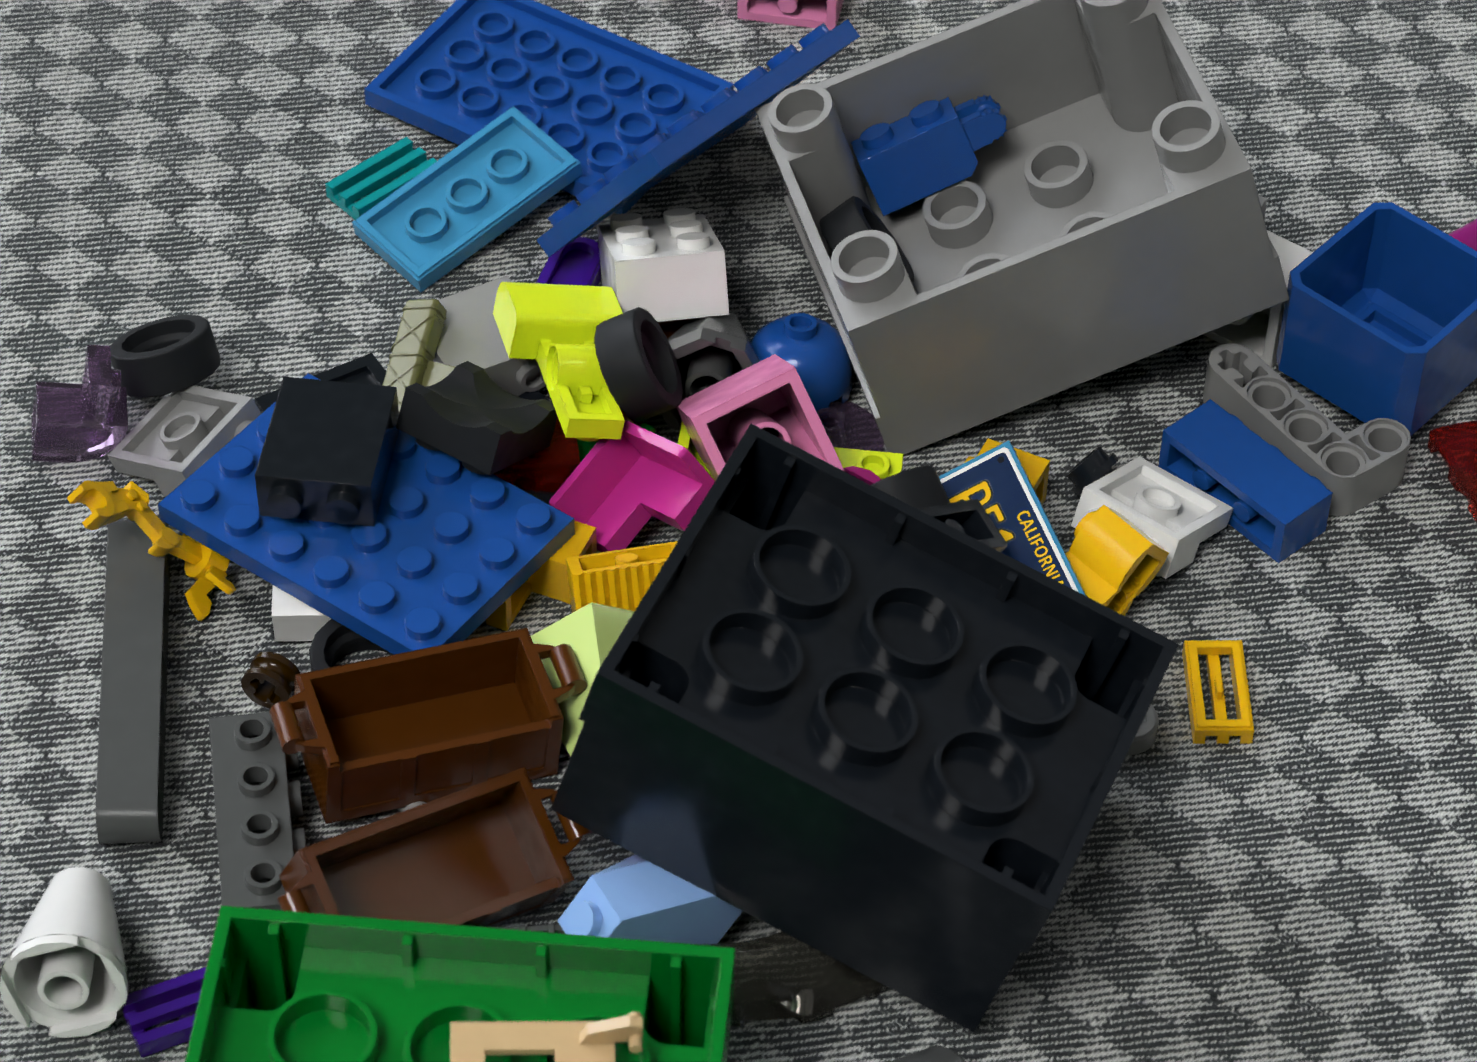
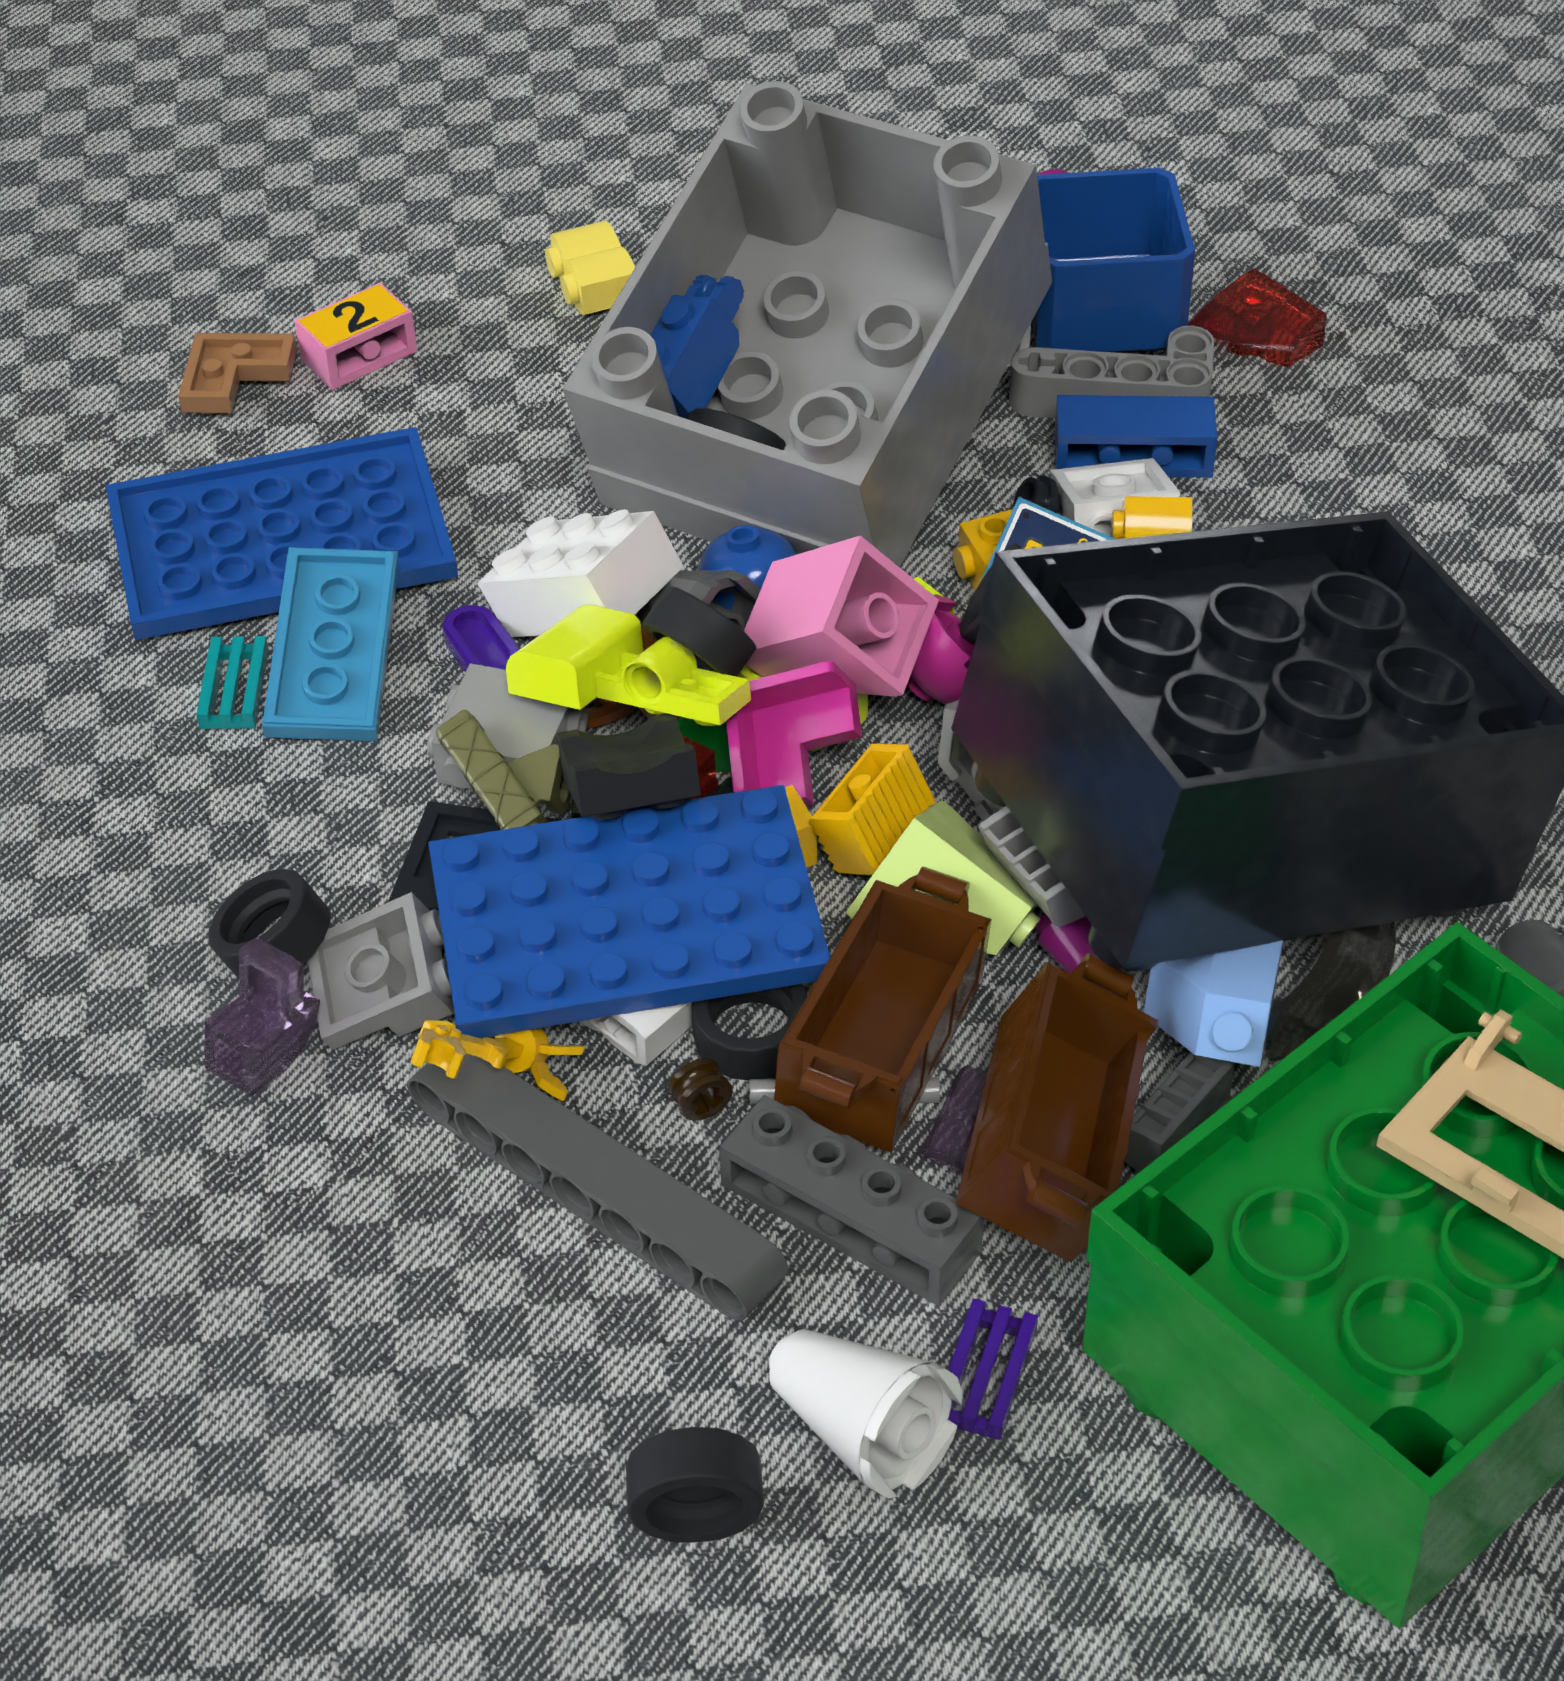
camera: 45 degrees left, 0 degrees up
(327, 451) = (561, 871): black brick -> none
(693, 135) = (503, 458): blue plate -> none

